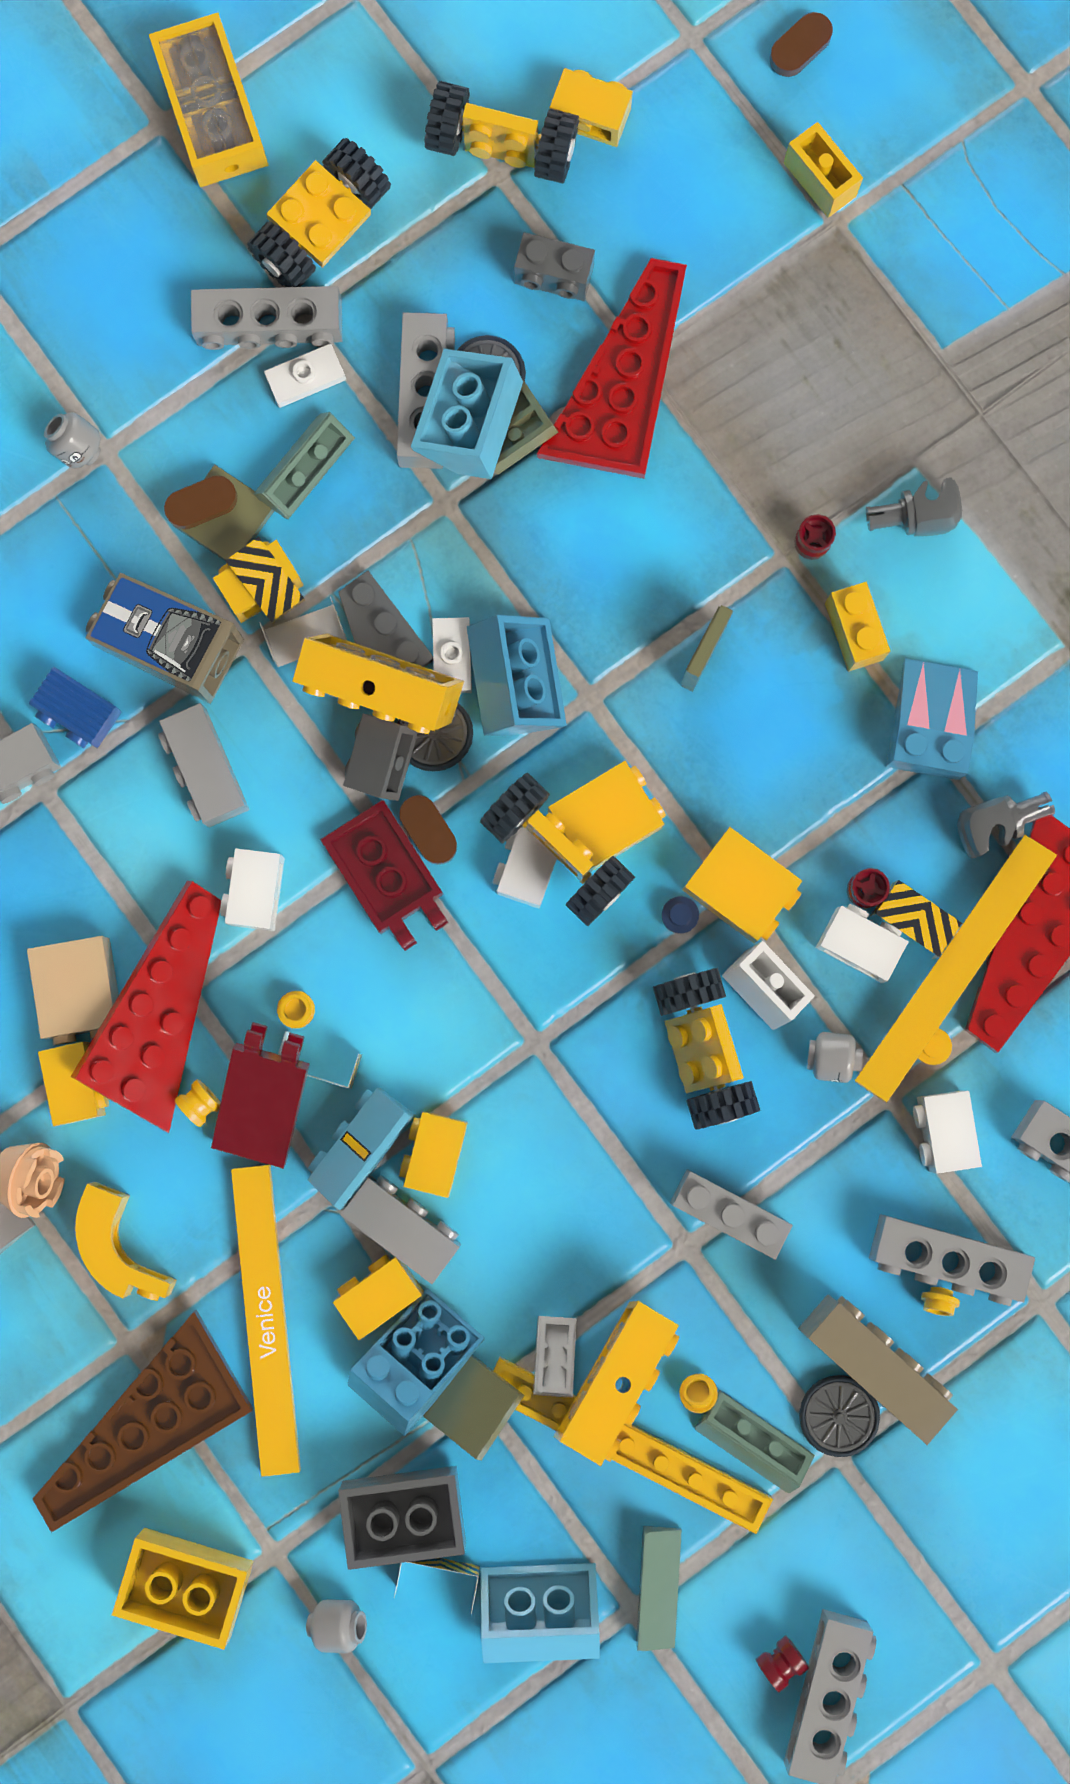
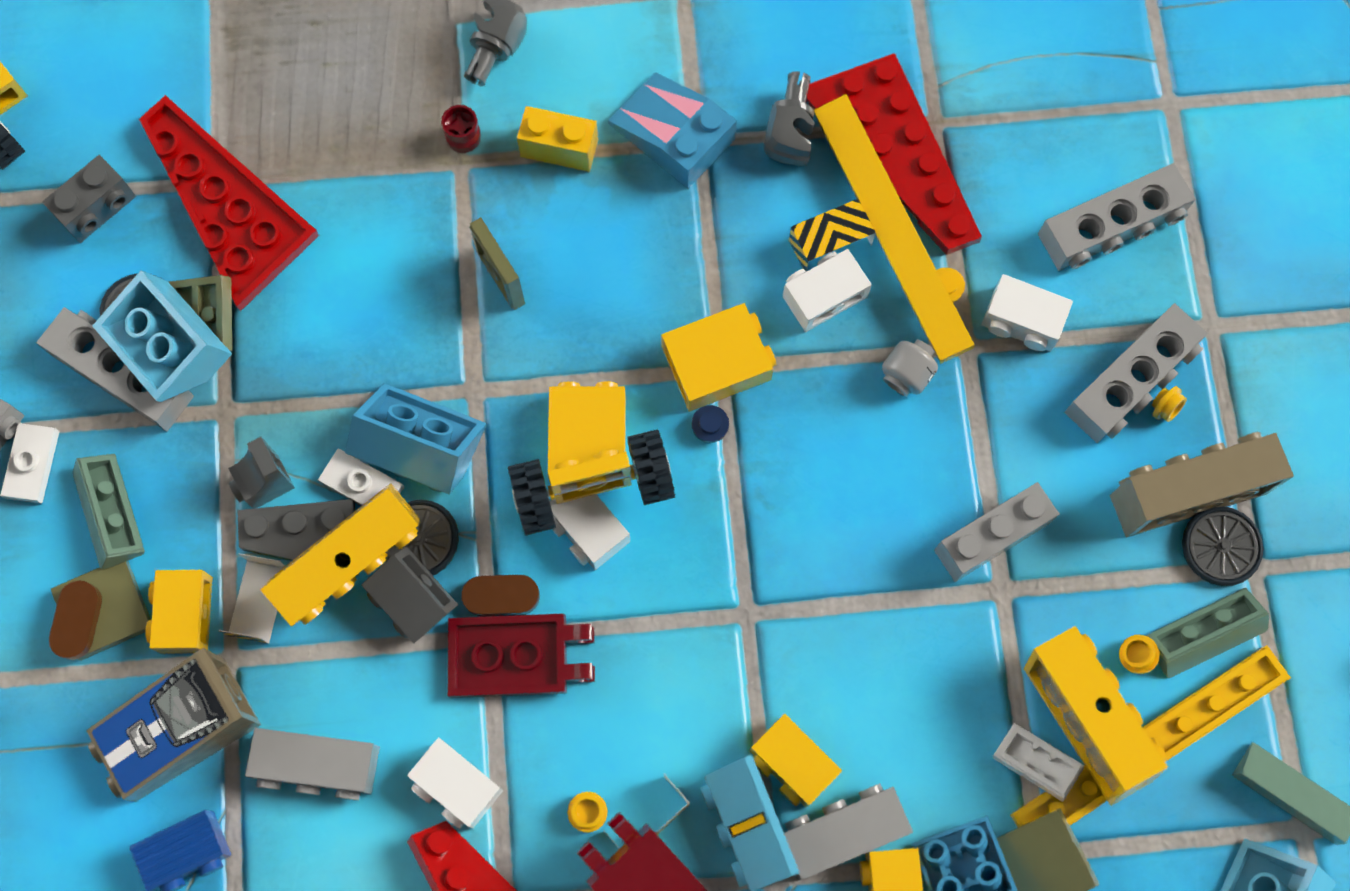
camera: 60 degrees left, 10 degrees down
(265, 580) = (184, 601): sticker -> none
(405, 570) = (259, 475): none -> dark grey arch
(705, 1049) = (841, 467): plate -> none
(768, 985) = (816, 384): white brick -> none
(873, 885) = (782, 250): dark red wheel -> none

